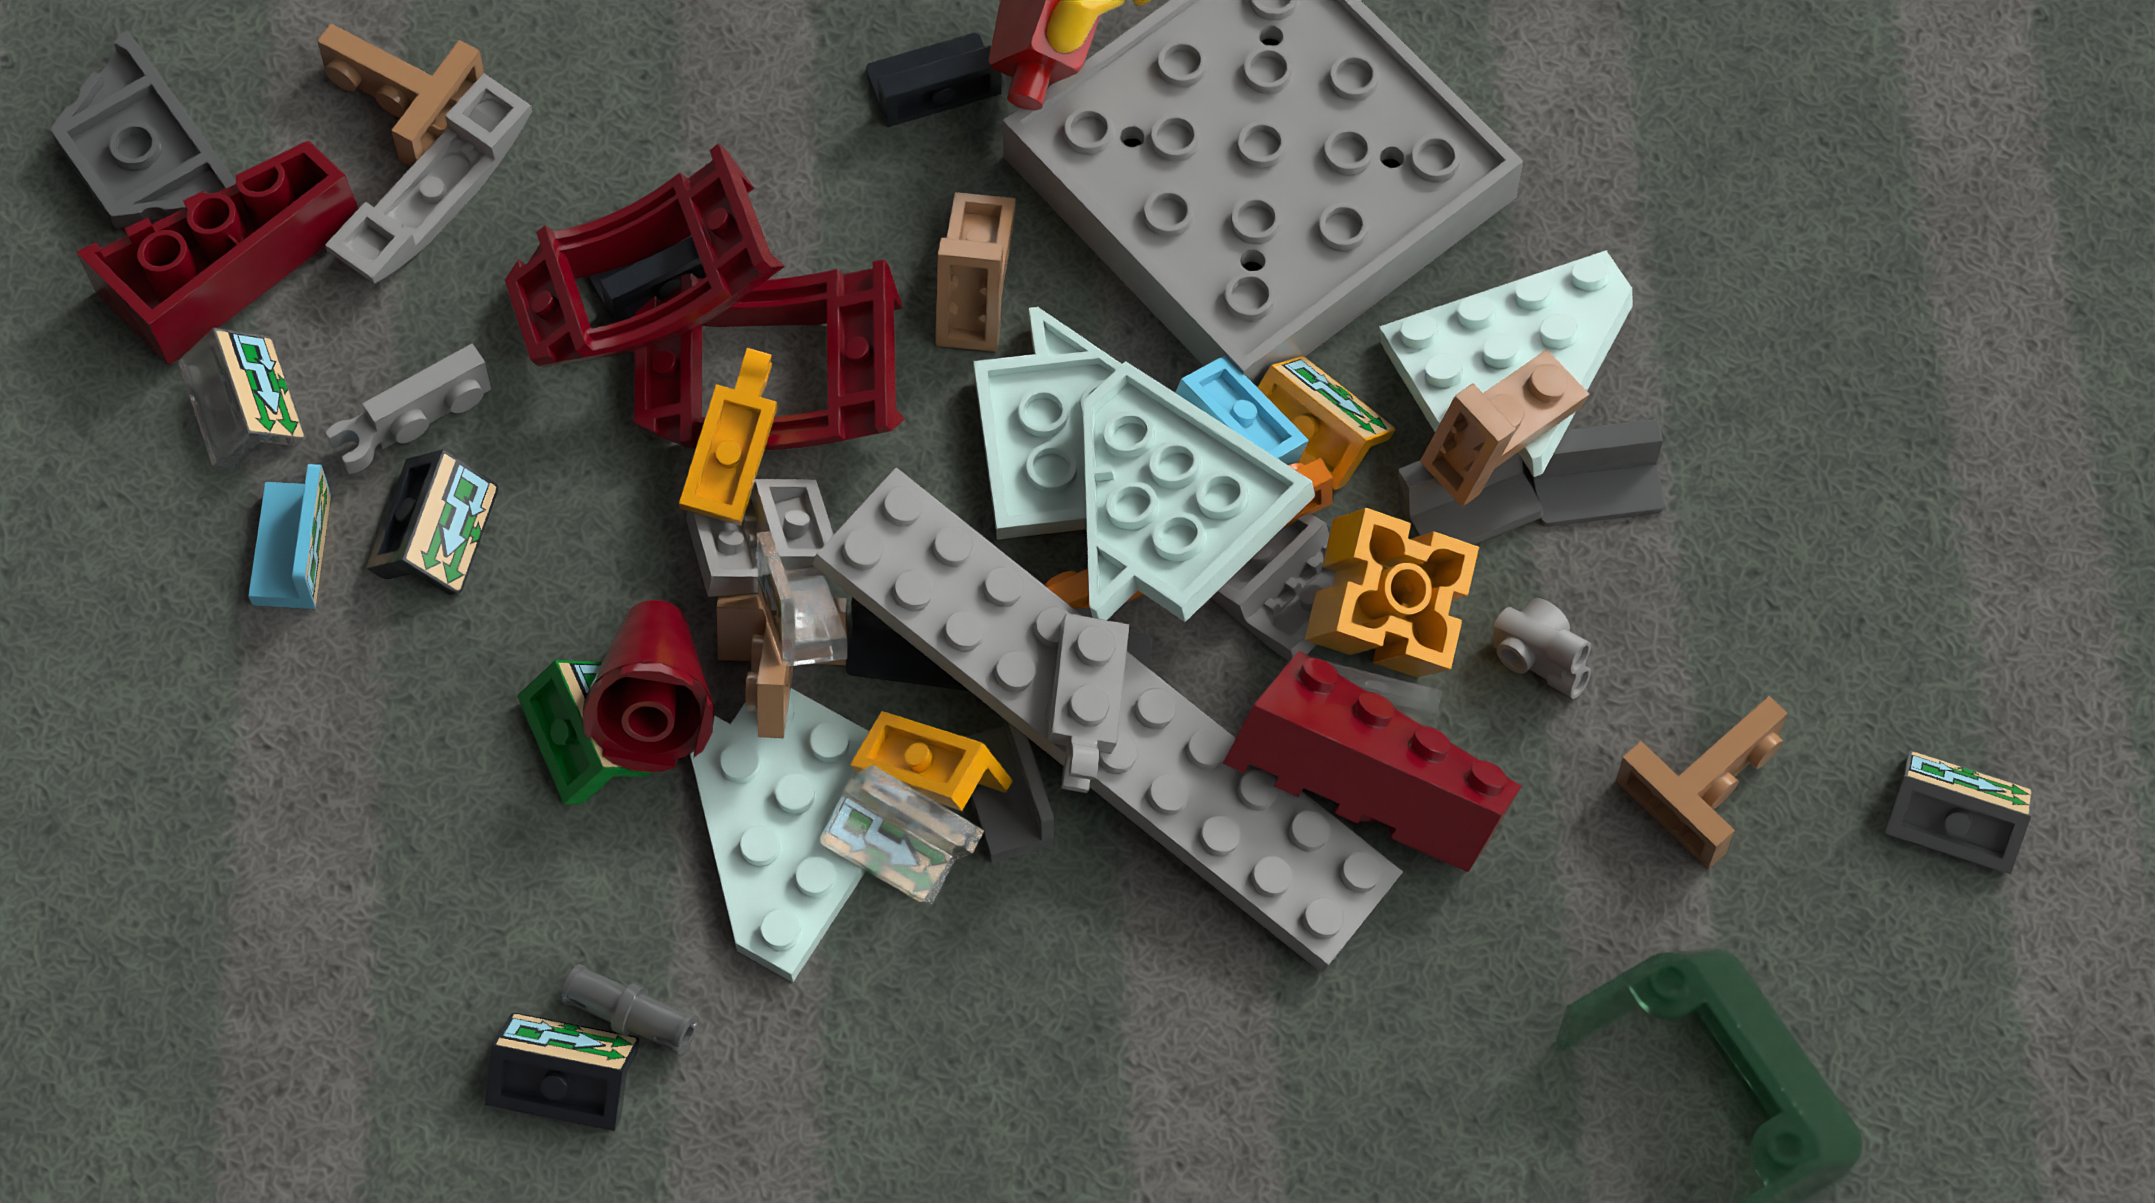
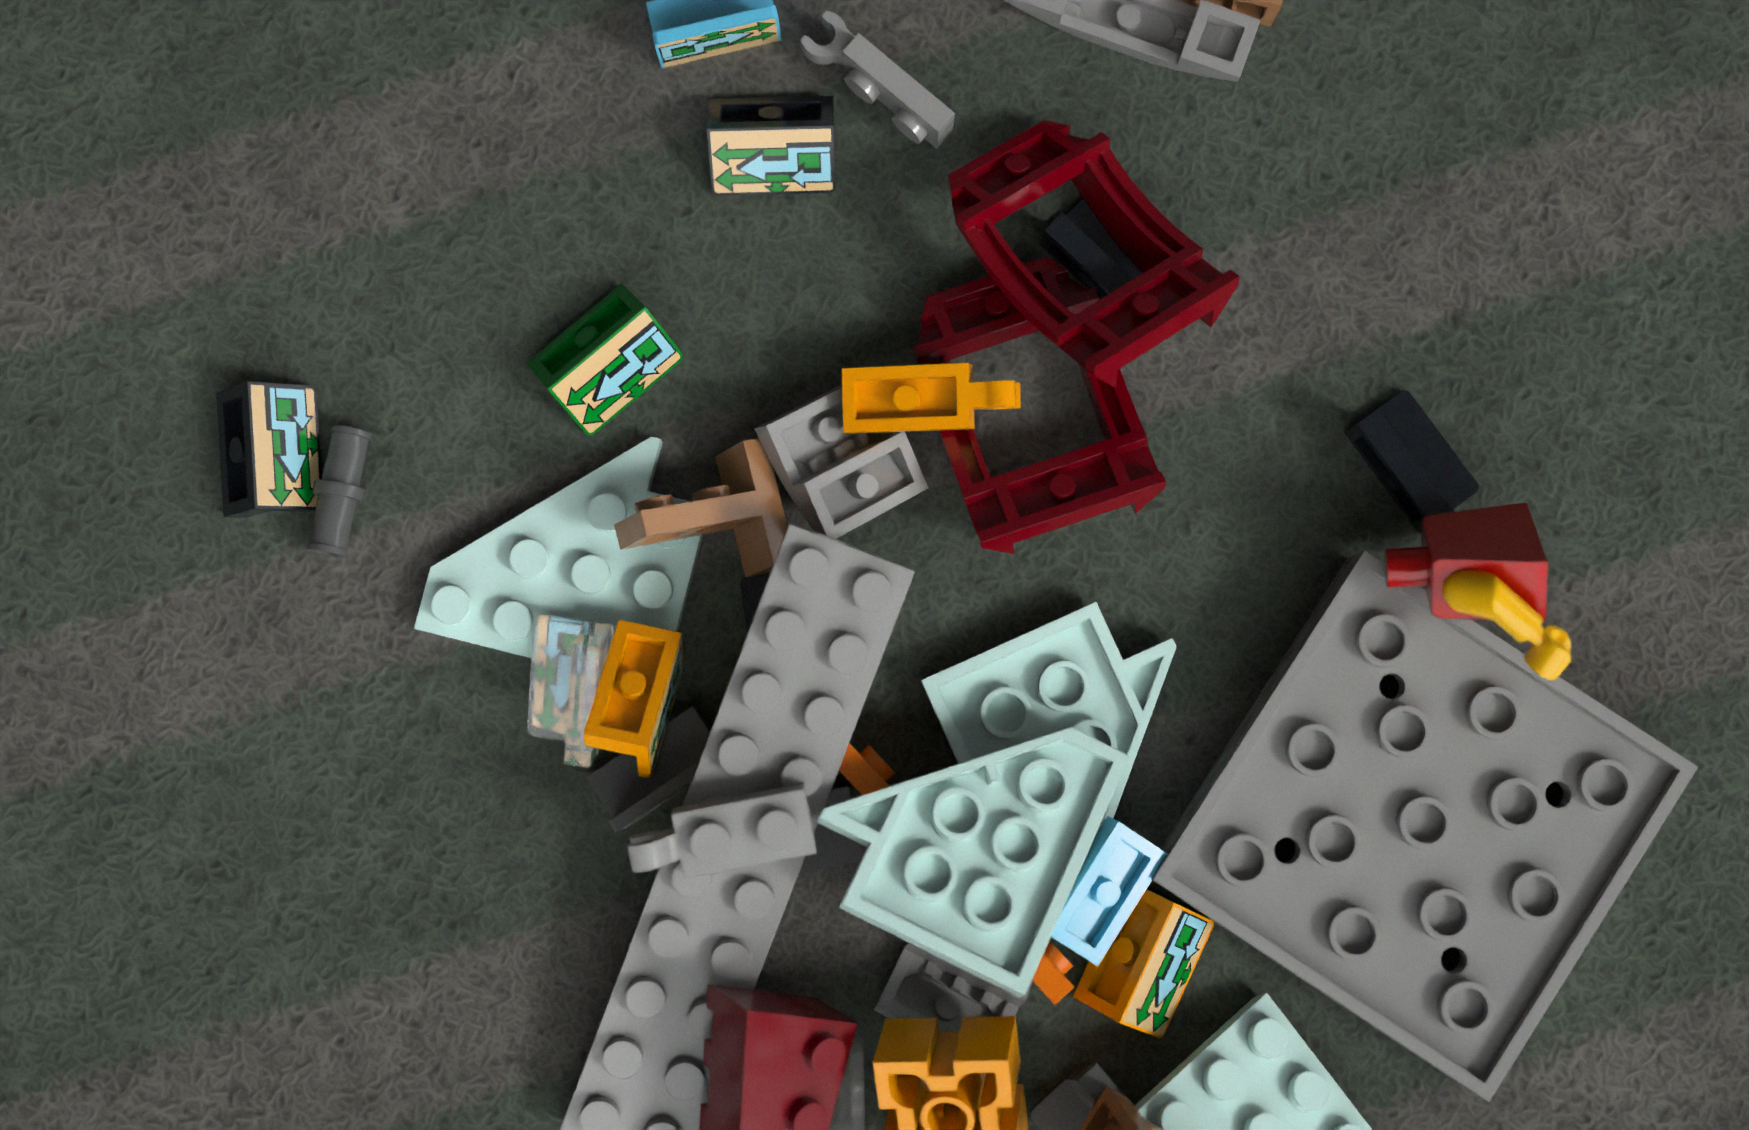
camera: 75 degrees right, 20 degrees up
(650, 692) = (645, 404): dark red cone -> none
(798, 609) = (745, 525): clear panel -> none
(973, 271) = (1203, 569): medium nougat bracket -> none

